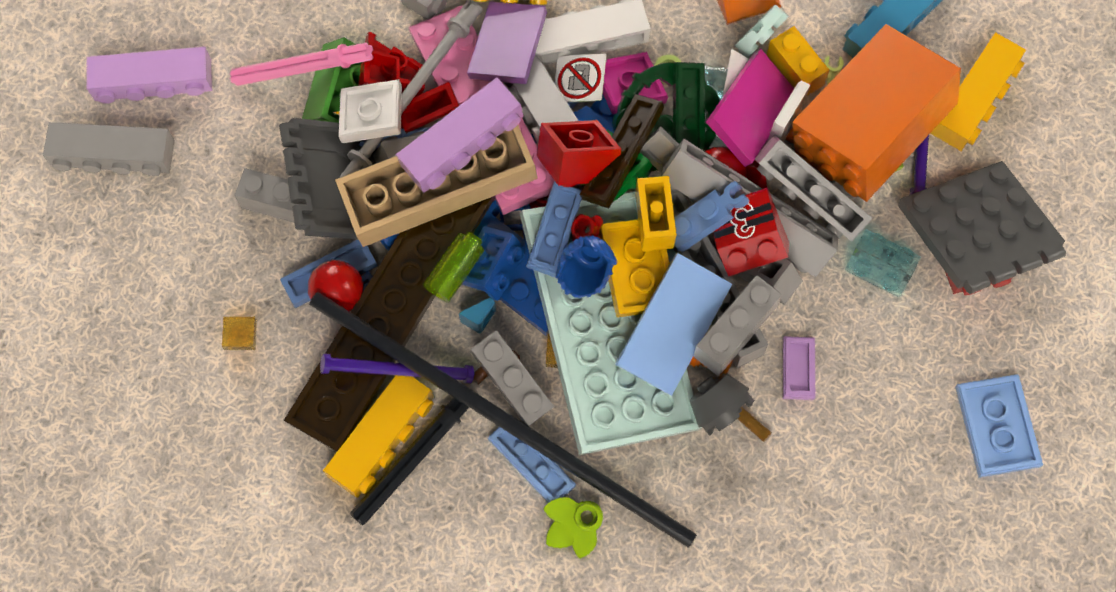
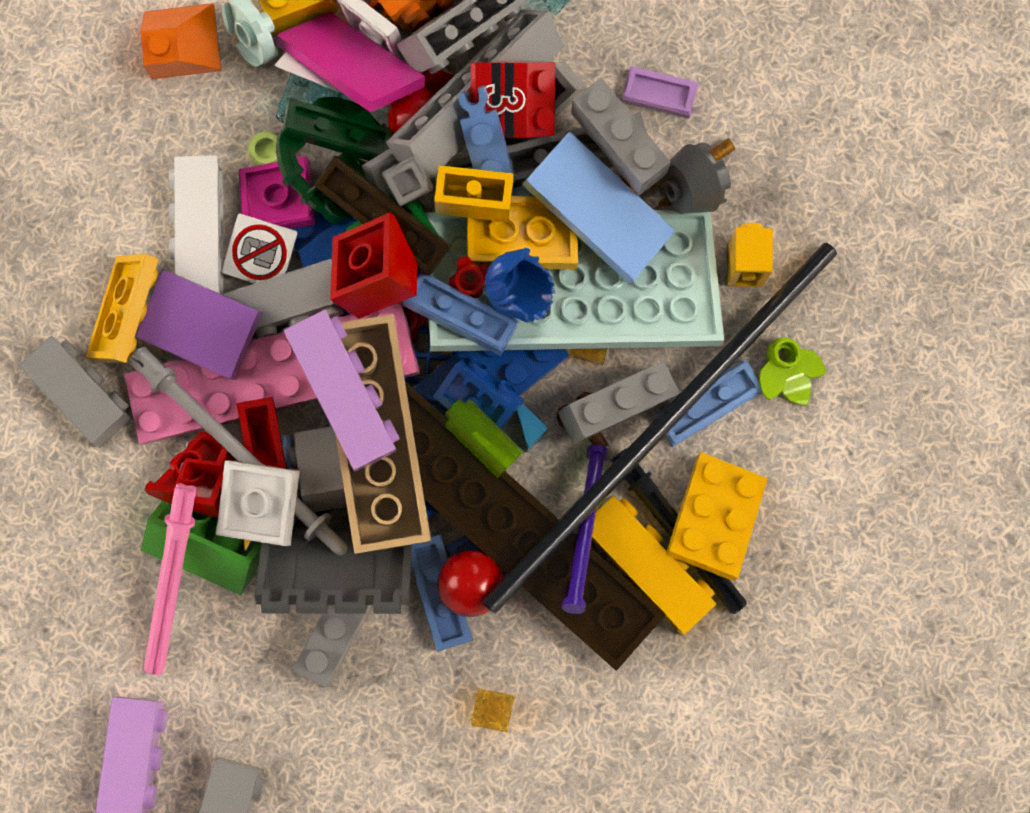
camera: 80 degrees left, 10 degrees up
(430, 481) = (717, 516): none -> yellow plate
(653, 158) = (408, 180): none -> light grey tile
(664, 463) = (750, 256): none -> yellow brick

